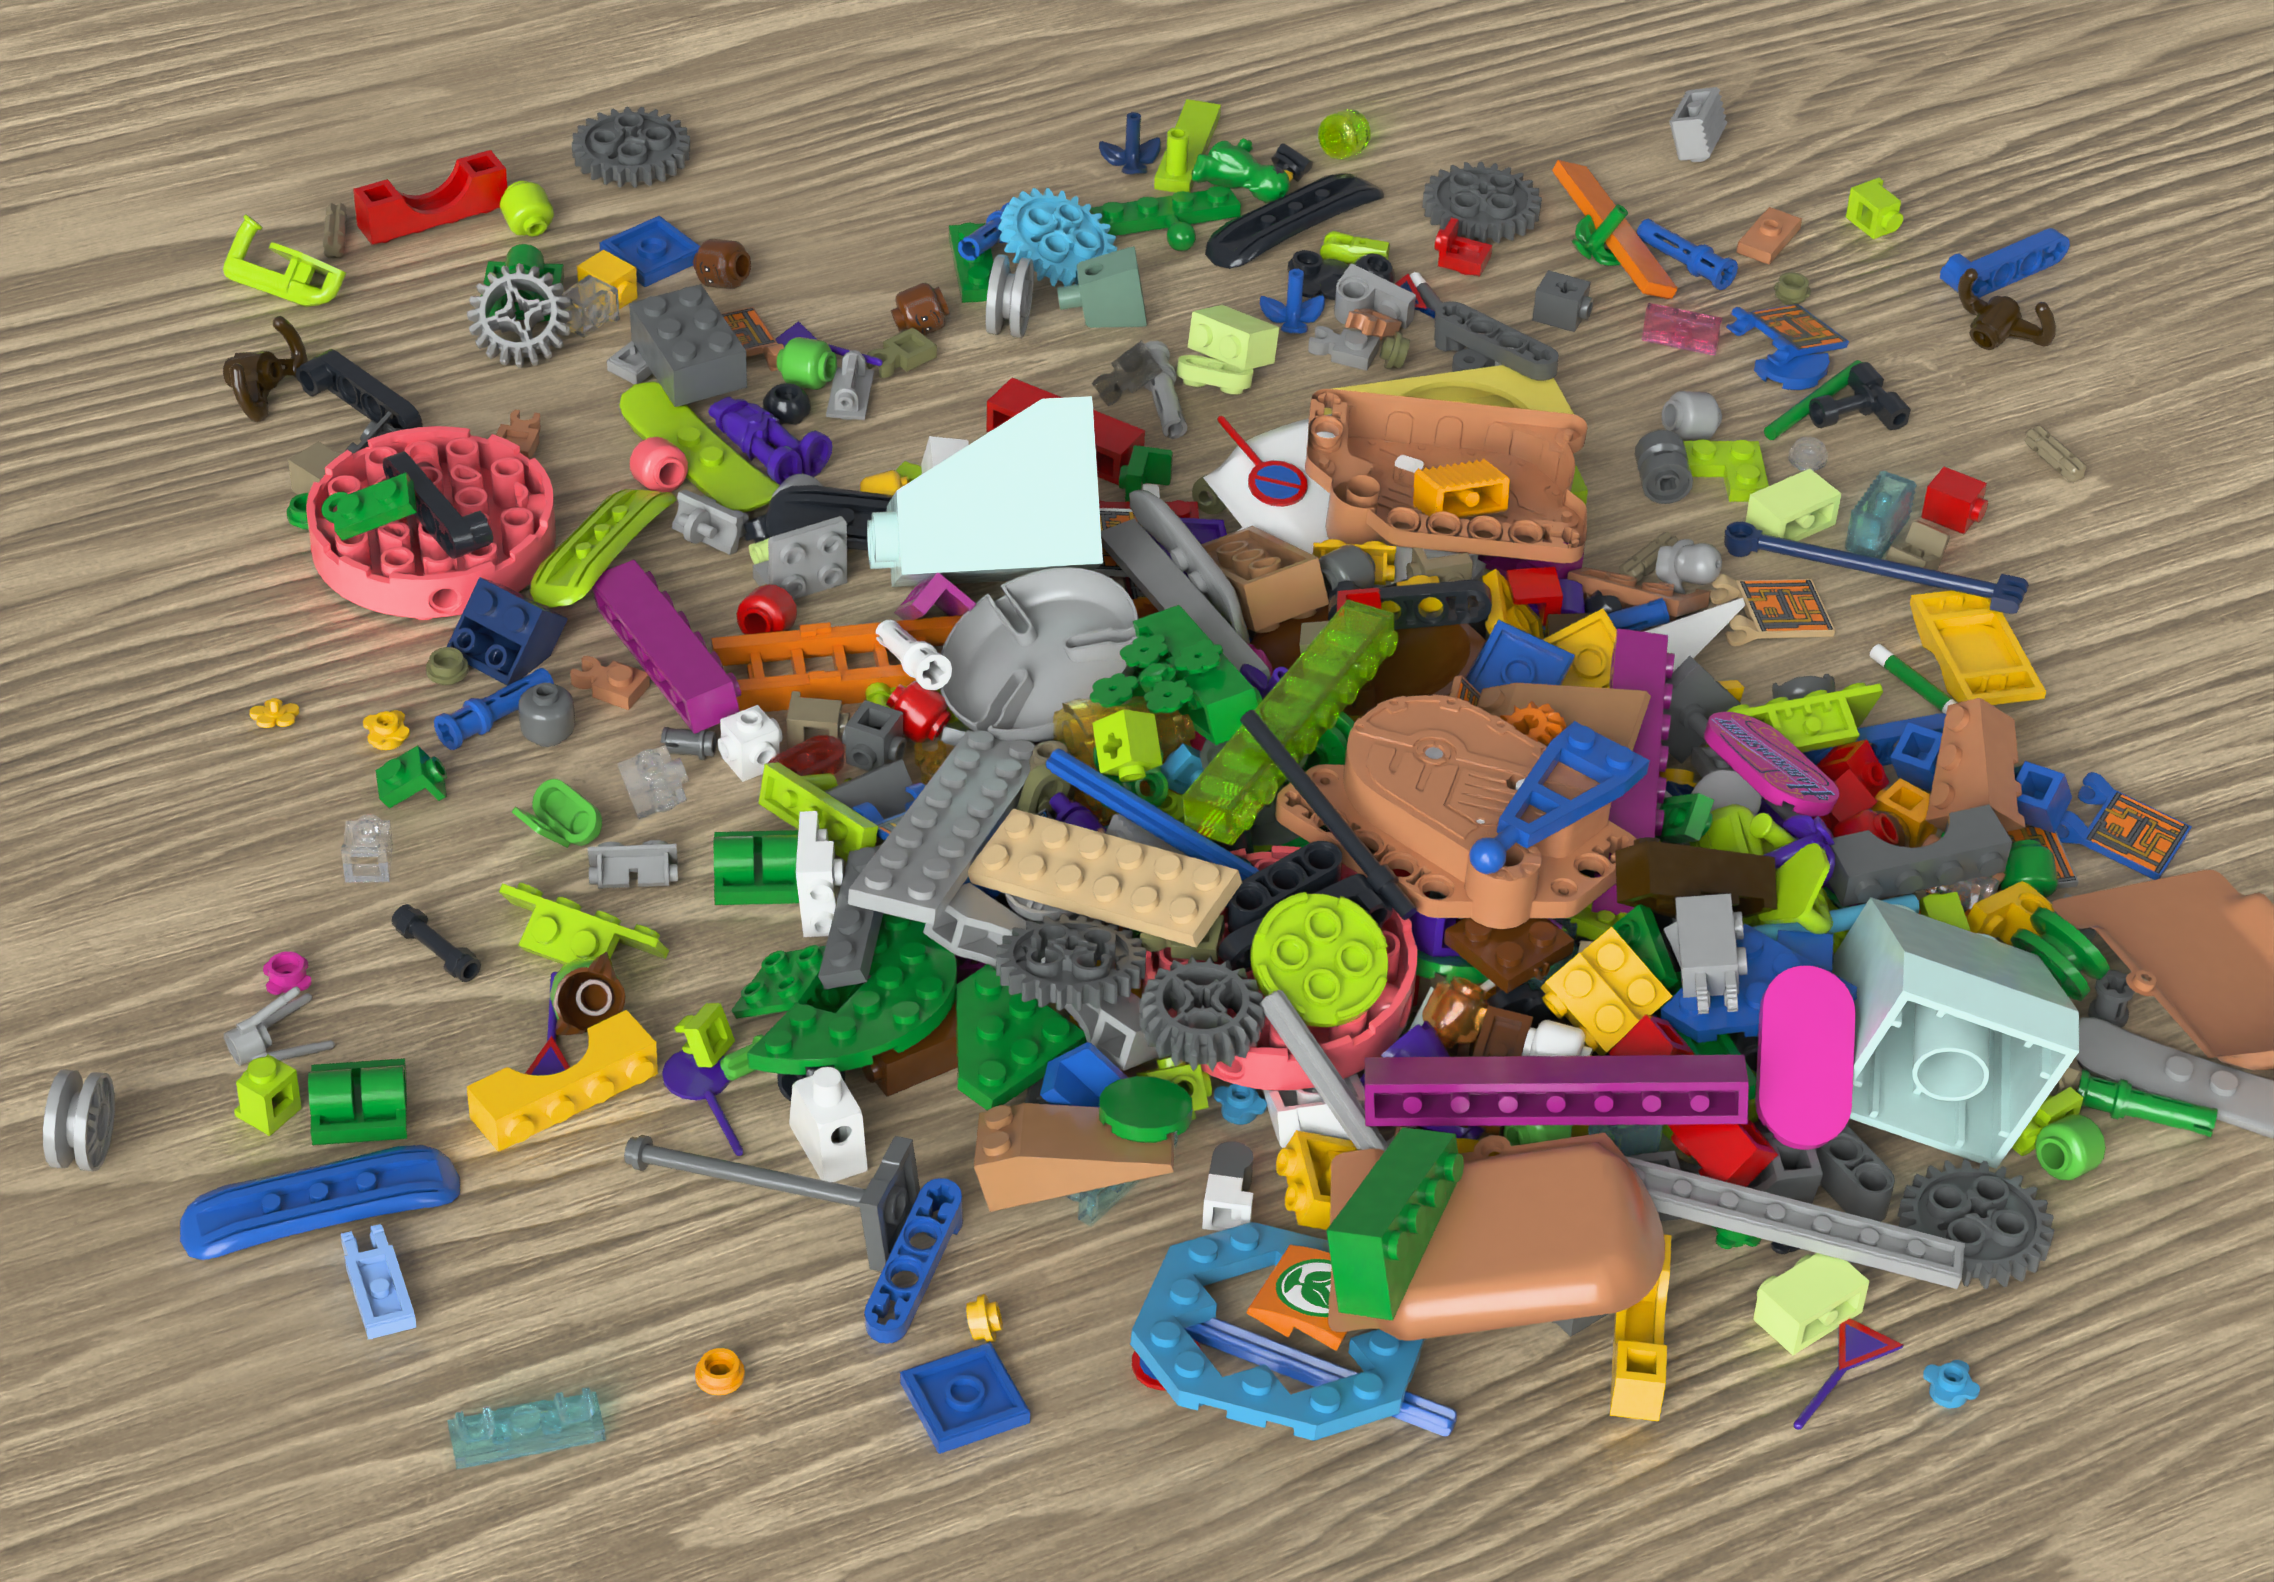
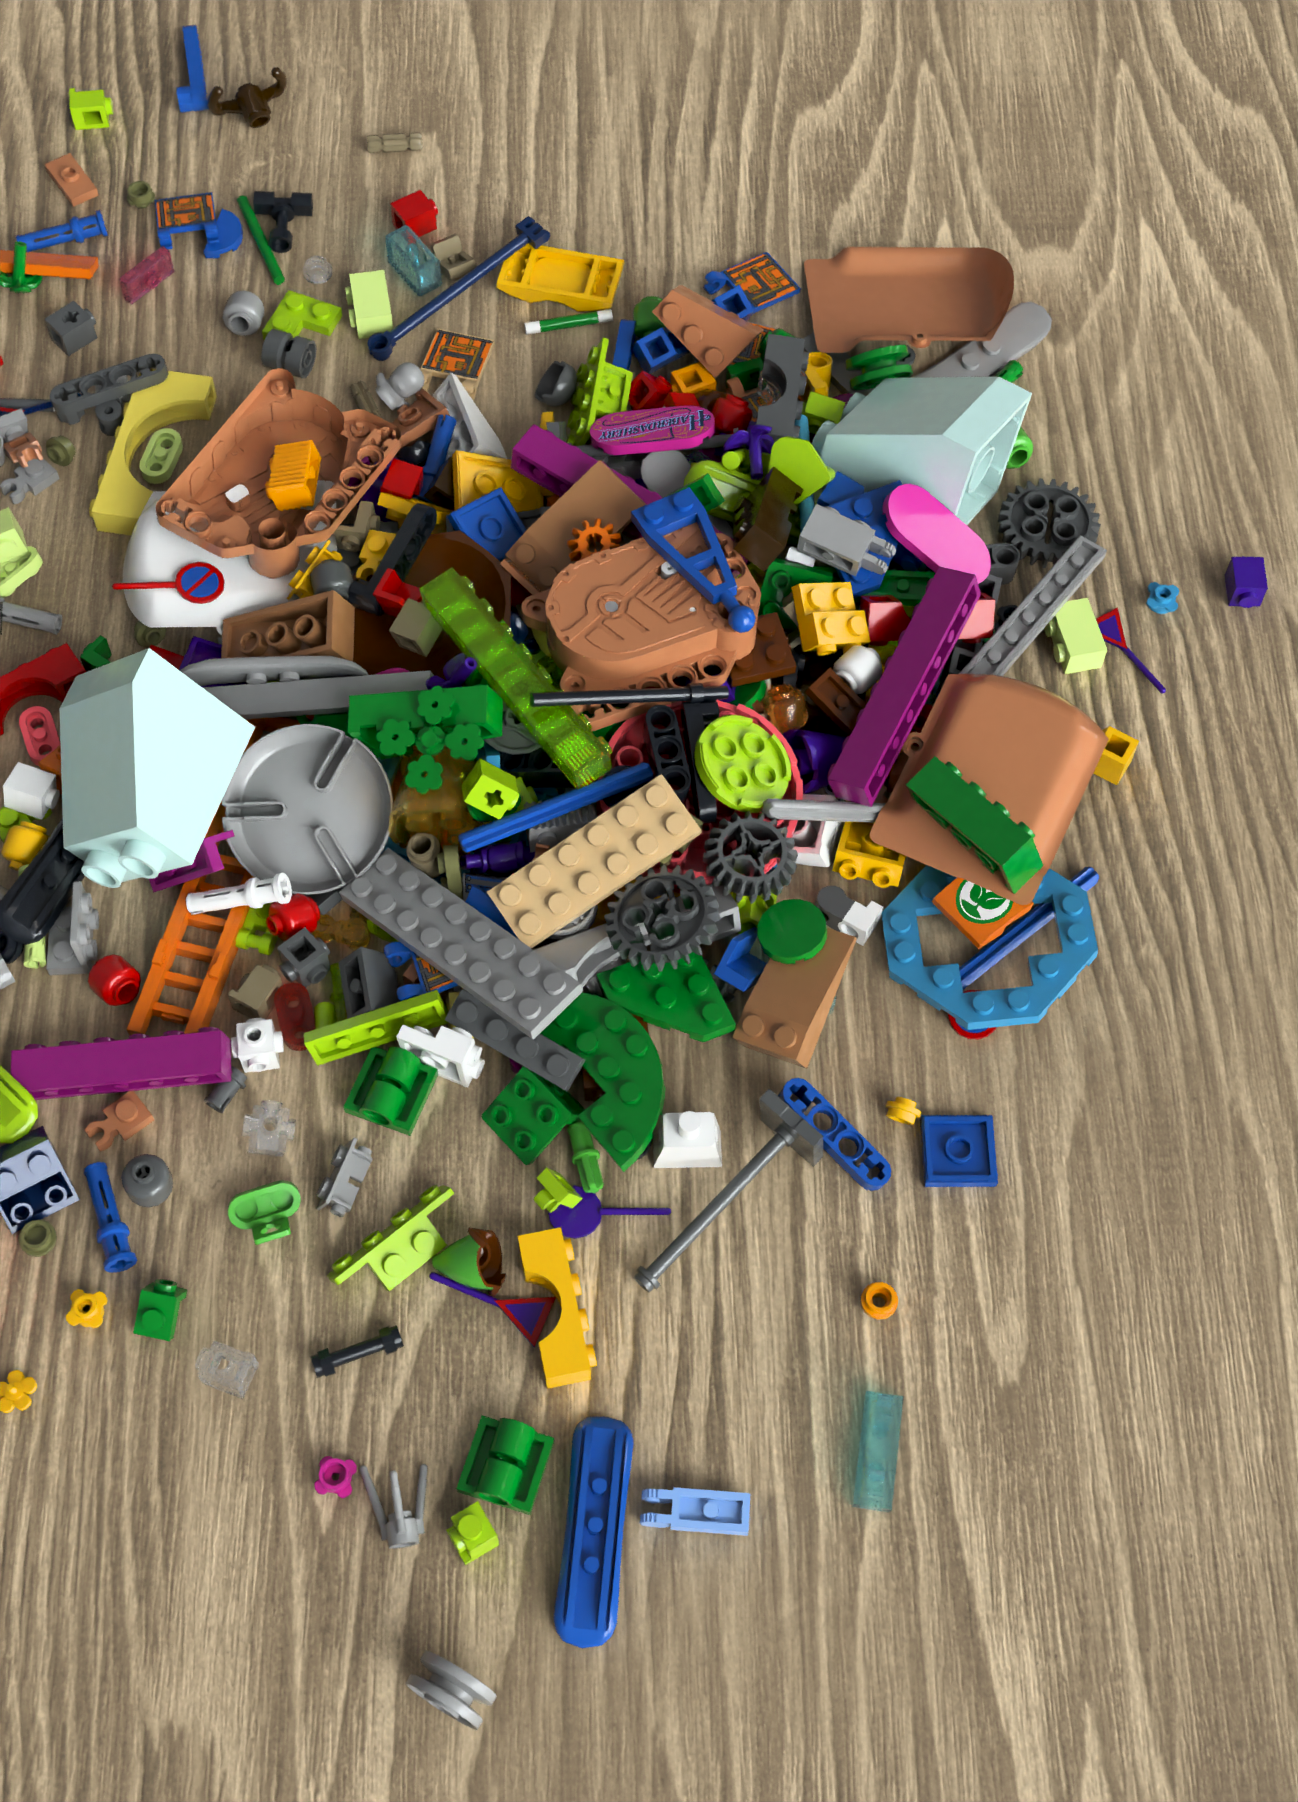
camera: 65 degrees left, 20 degrees up
(2045, 1464) = (1246, 581): none -> dark purple brick

